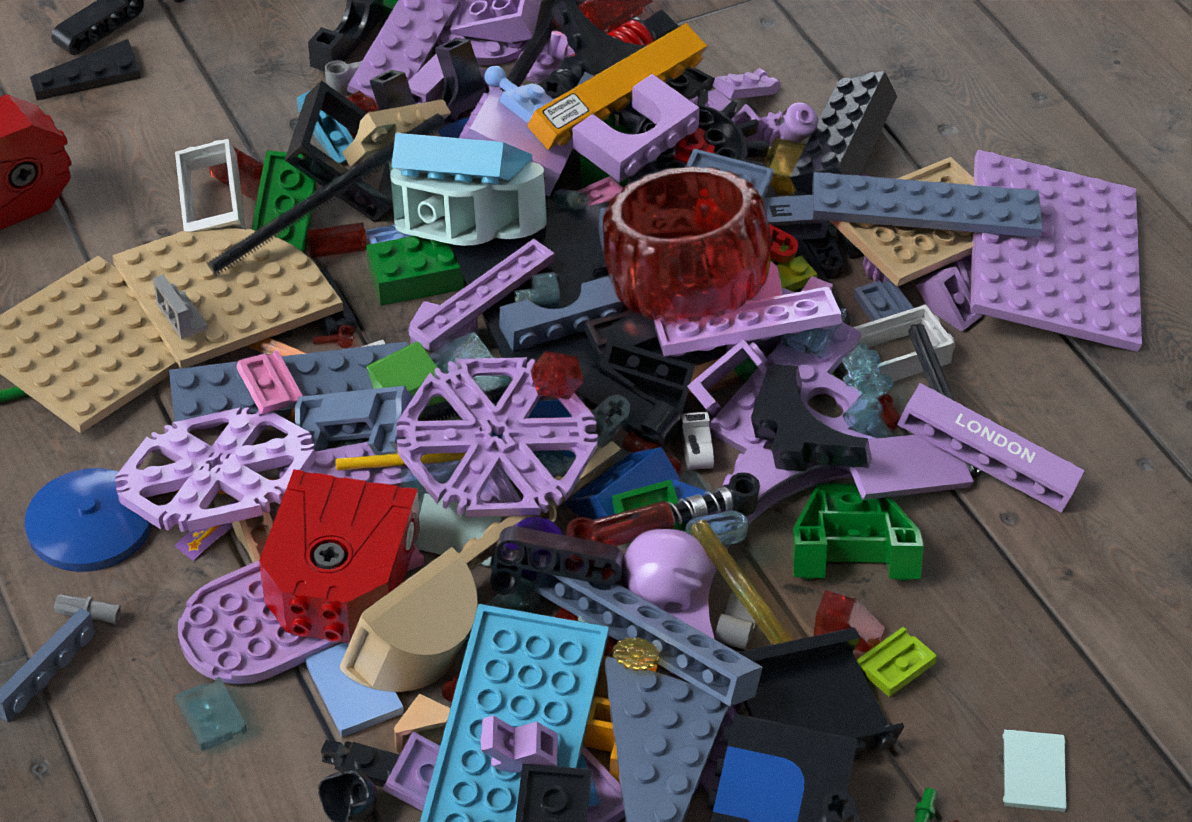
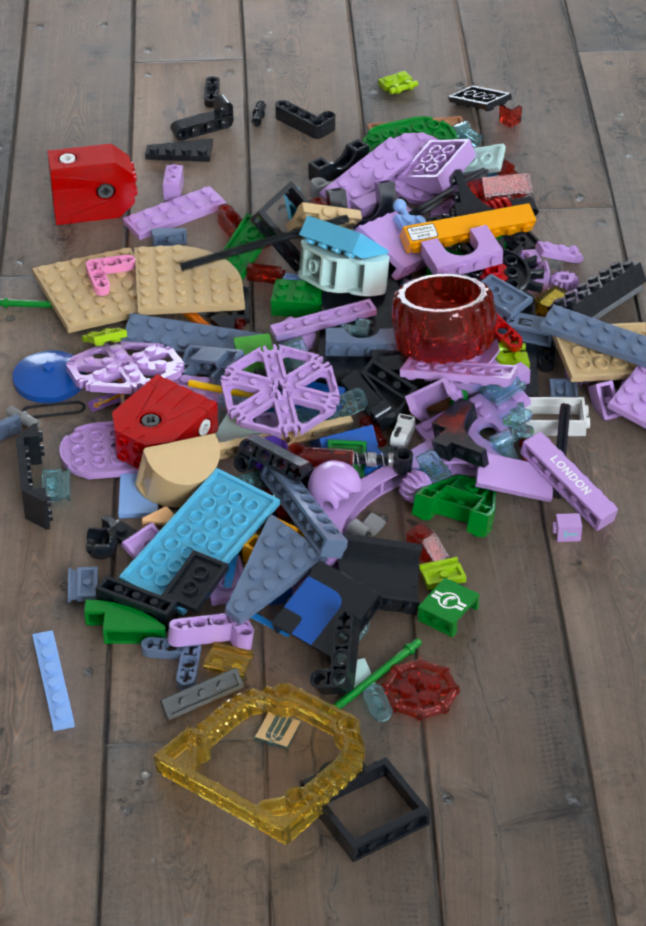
camera: 25 degrees right, 5 degrees down
(109, 128) = (173, 182): none -> lavender brick
(109, 288) = (101, 266): none -> bright pink beam
(126, 564) = (55, 404): none -> black piece
(130, 179) = (174, 212): none -> lavender plate
(147, 421) = (105, 335): none -> lime plate
(150, 222) = (168, 236): none -> sand blue slope
(178, 308) = (149, 281): light grey bracket -> none
(194, 159) = (202, 209): white window -> none
(201, 766) = (34, 500): none -> black slope
(269, 381) = (178, 332): bright pink plate -> none
(319, 338) = (223, 319): none -> black slope
(519, 745) = (193, 539): lavender brick -> none
(557, 375) = (325, 365): clear red brick -> none
(636, 654) = (285, 516): clear yellow piece -> none
(722, 524) = (377, 474): clear light blue plate -> none
(739, 583) = (371, 501): clear yellow axle -> none
(775, 529) = (413, 483): none -> lavender gear
(789, 490) = (433, 466): none -> clear light blue slope
(797, 122) = (569, 277): lavender head -> none
(942, 717) = (446, 606): none -> green panel
(1027, 522) = (567, 527): none -> lavender brick
(1034, 770) = (486, 651): light aqua piece -> none

